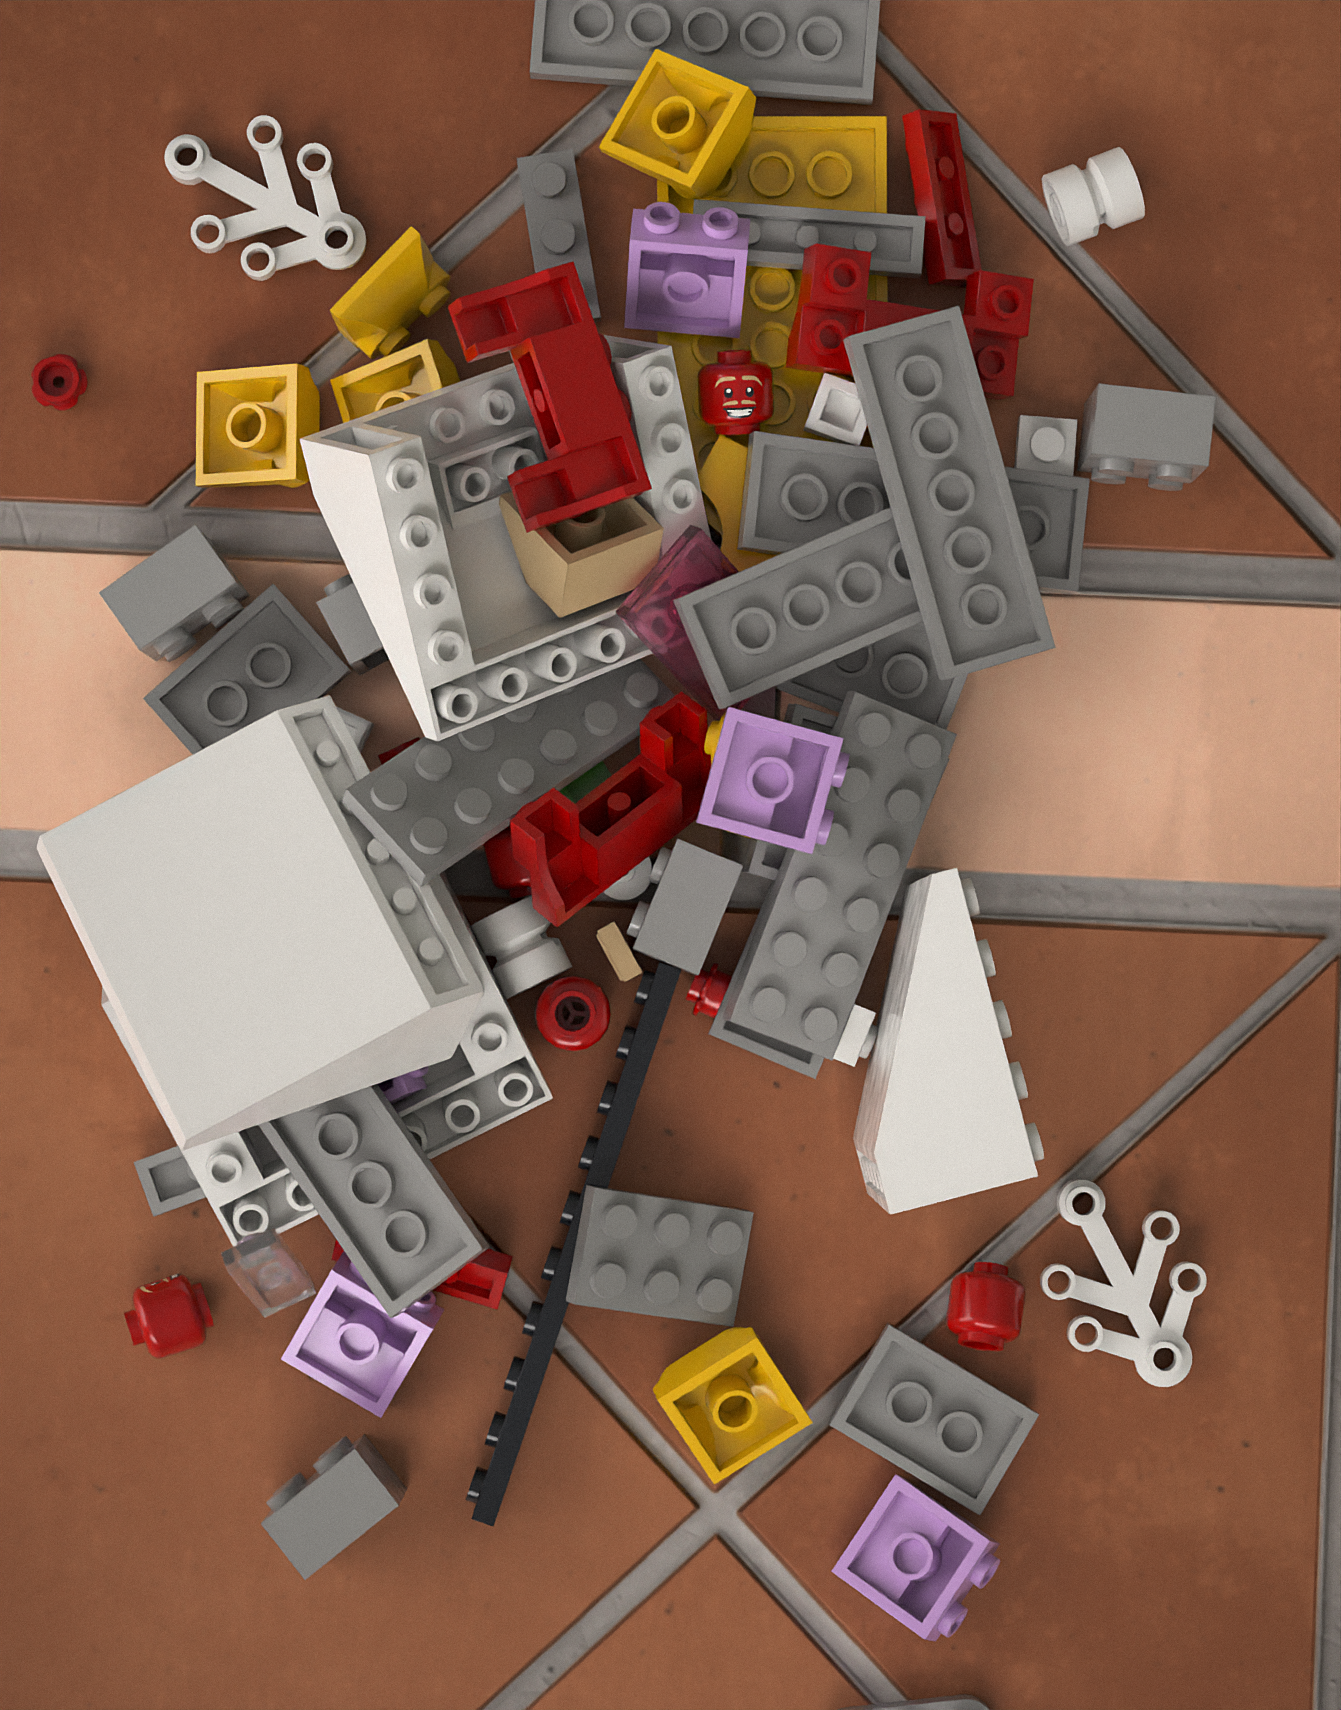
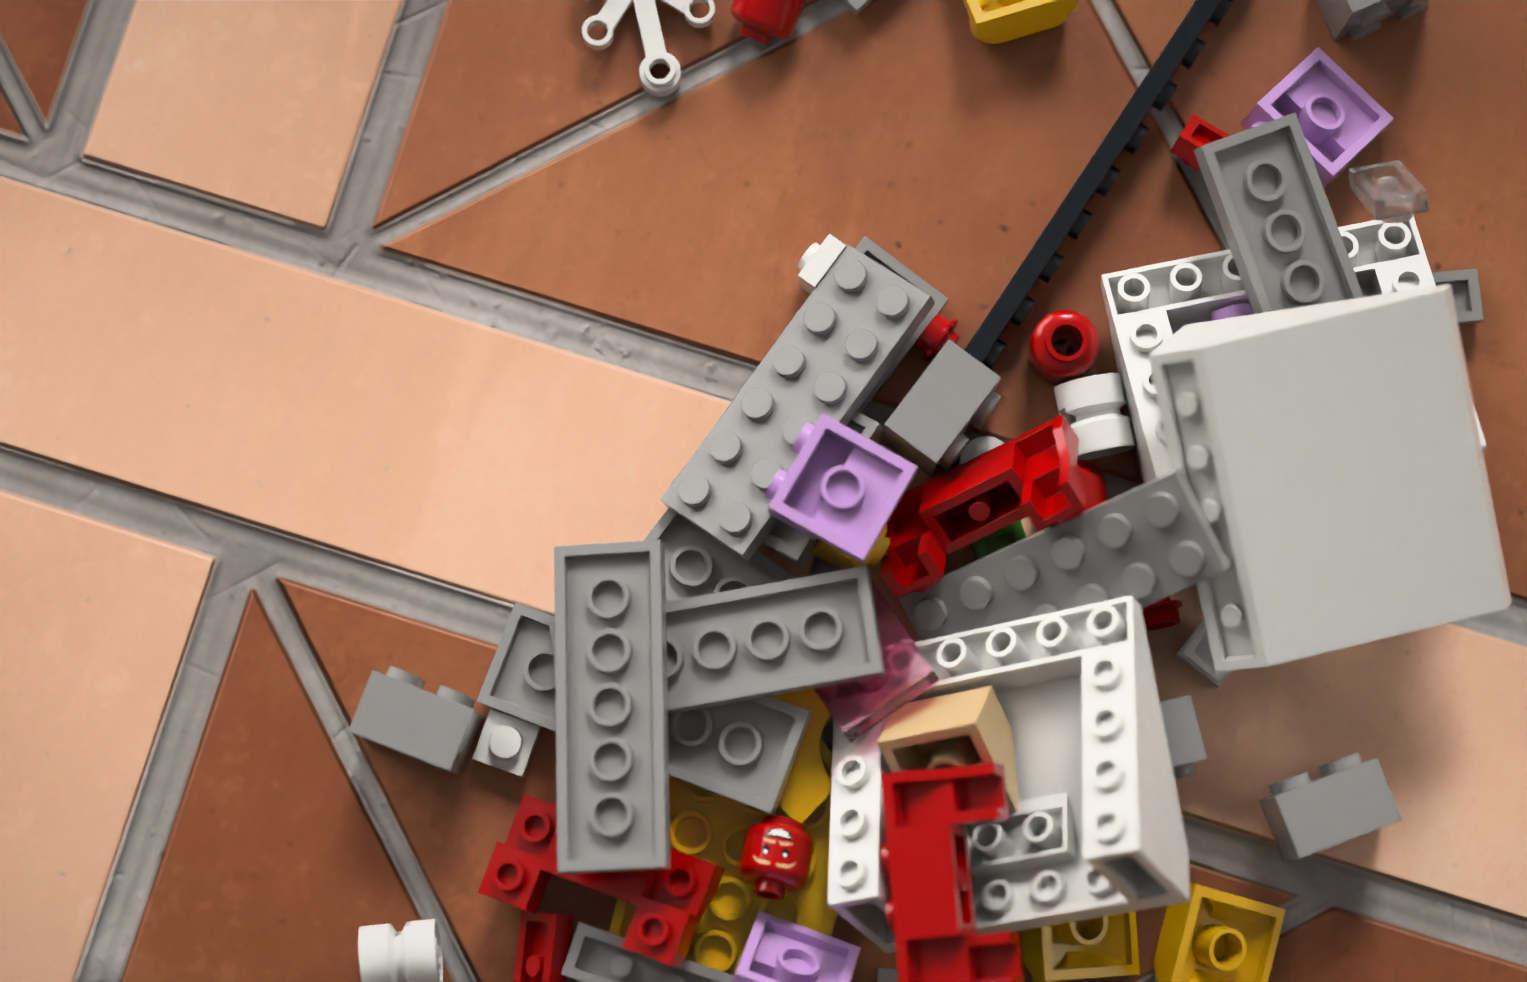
camera: 160 degrees left, 5 degrees down
(169, 1316) = (1483, 179): red head -> none
(245, 672) = (1281, 719): light grey plate -> none
(618, 952) = (1010, 388): tan tile -> none
(659, 1256) = (1041, 118): light grey plate -> none
(837, 412) = (690, 816): white plate -> none
(938, 1085) = (775, 175): white slope -> none

